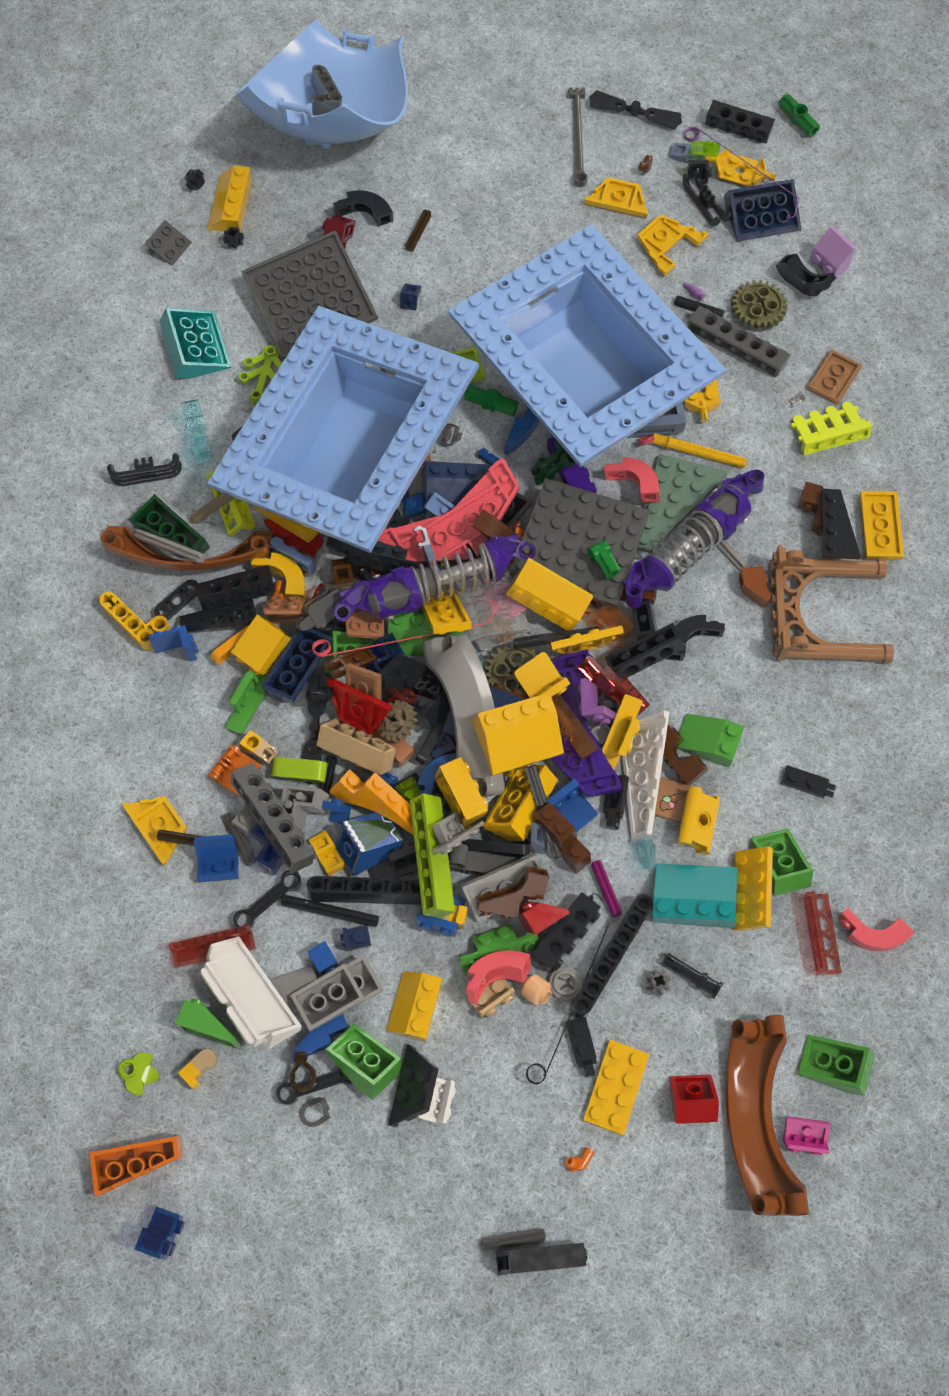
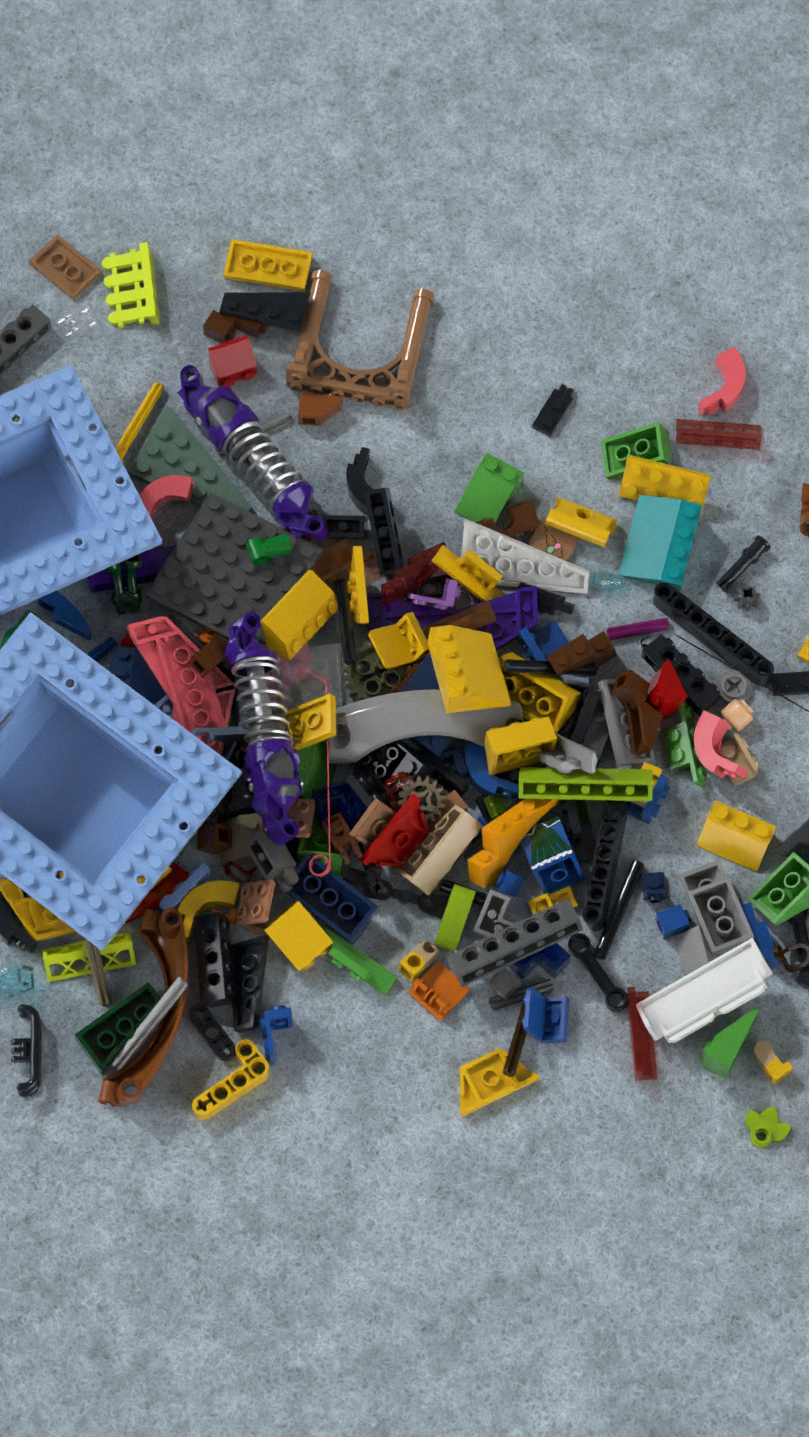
camera: 80 degrees left, 0 degrees up
(223, 652) = (282, 967): light orange beam -> none
(779, 510) = (232, 361): none -> red slope

